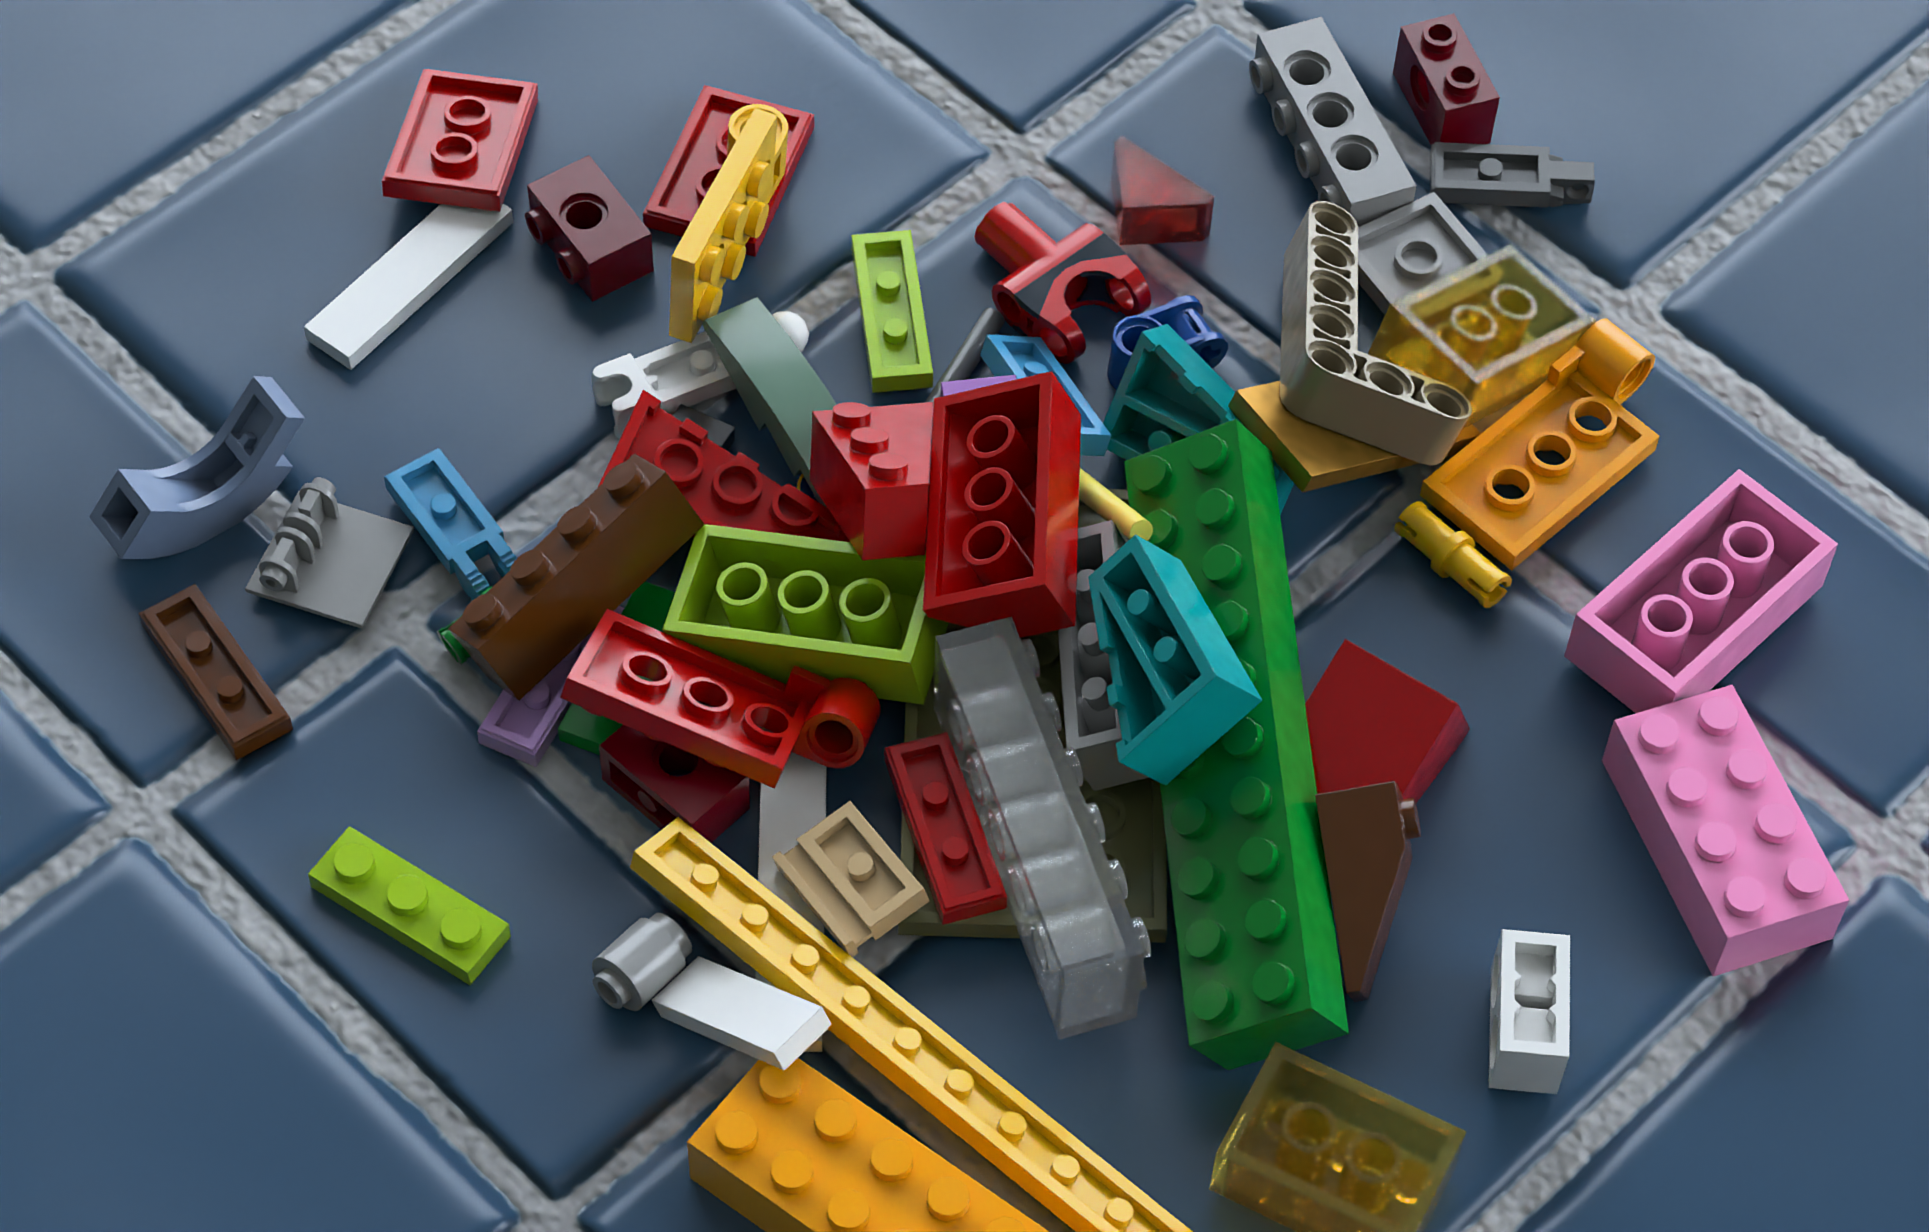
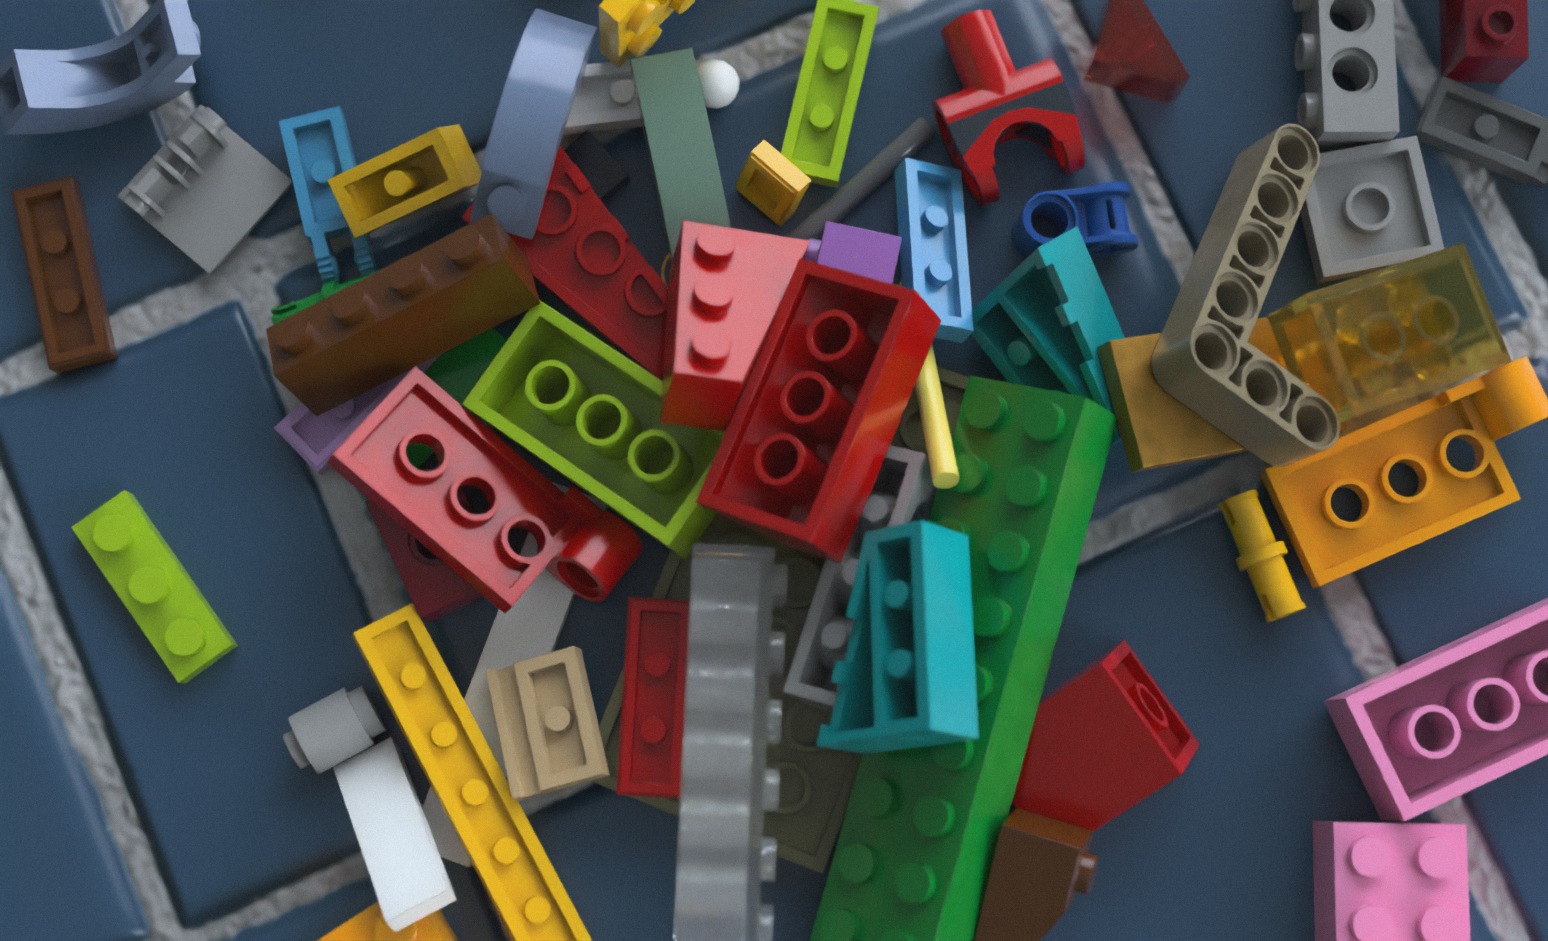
camera: 20 degrees right, 25 degrees up
(531, 480) = (406, 180): none -> yellow slope
(641, 380) = (532, 121): none -> sand blue arch
(872, 382) = (772, 183): none -> yellow tile

